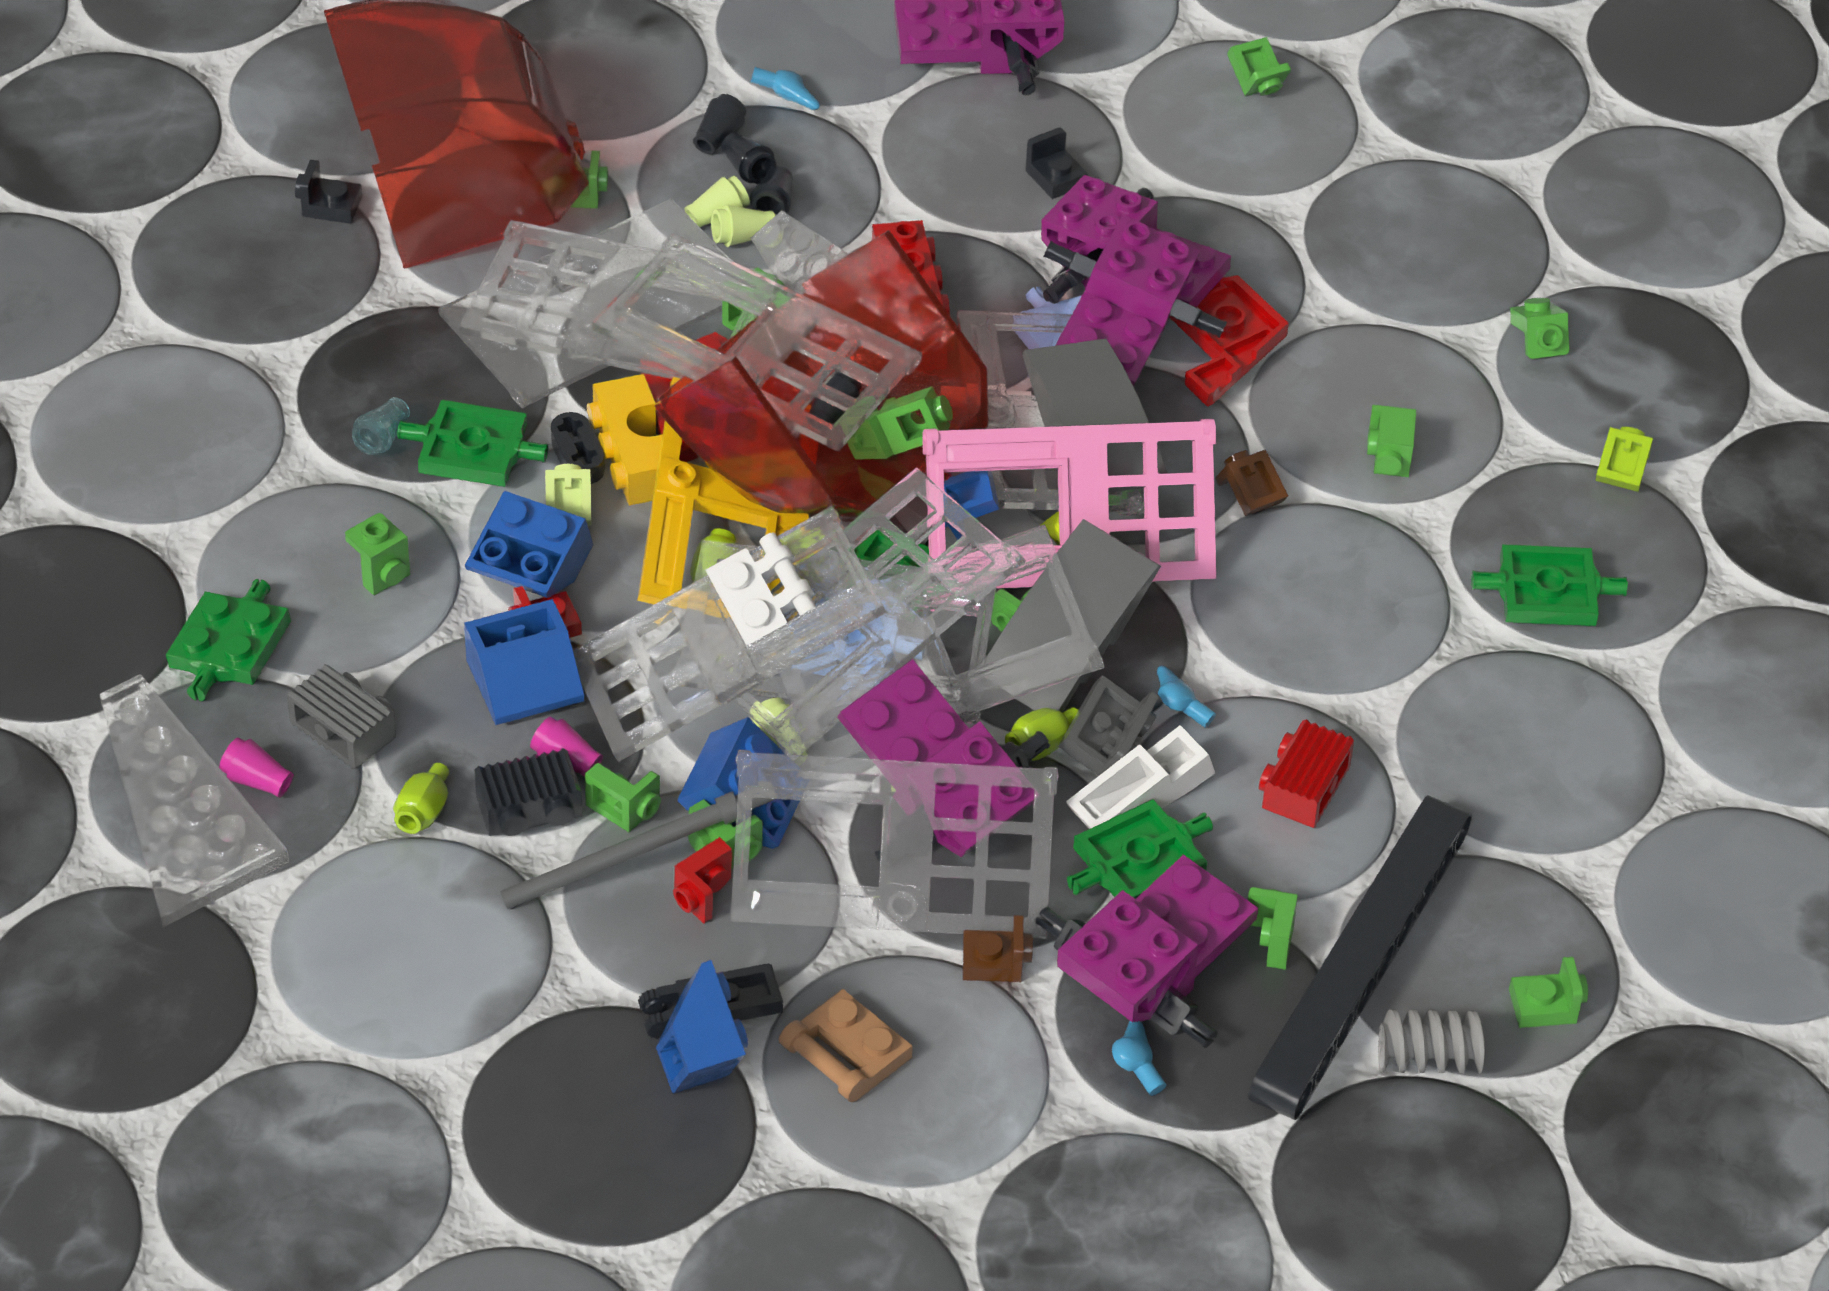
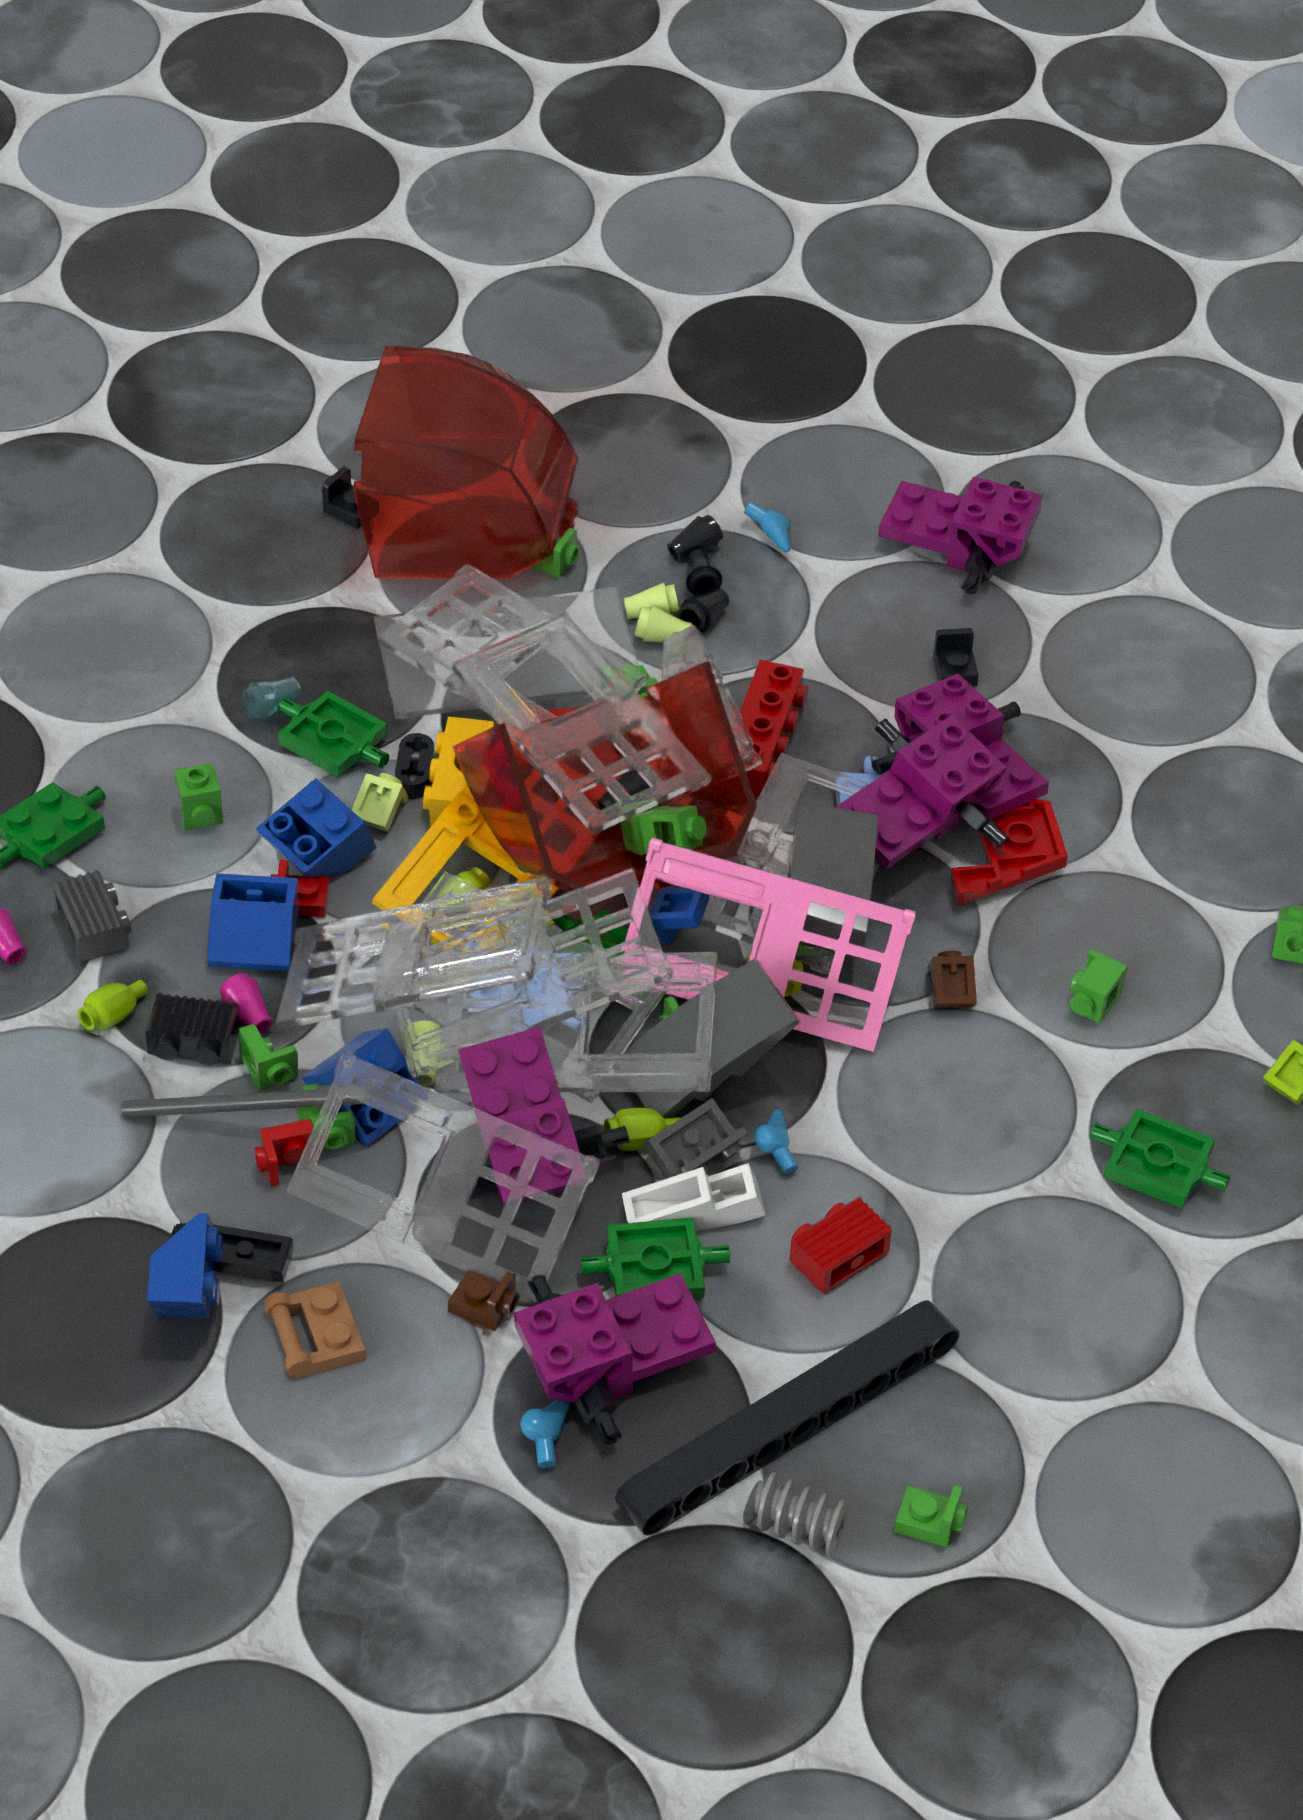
camera: 25 degrees right, 0 degrees up
(747, 595) = (441, 924): white plate -> none
(1257, 67) = (1182, 631): bright green bracket -> none
(1277, 920) = (732, 1362): bright green bracket -> none

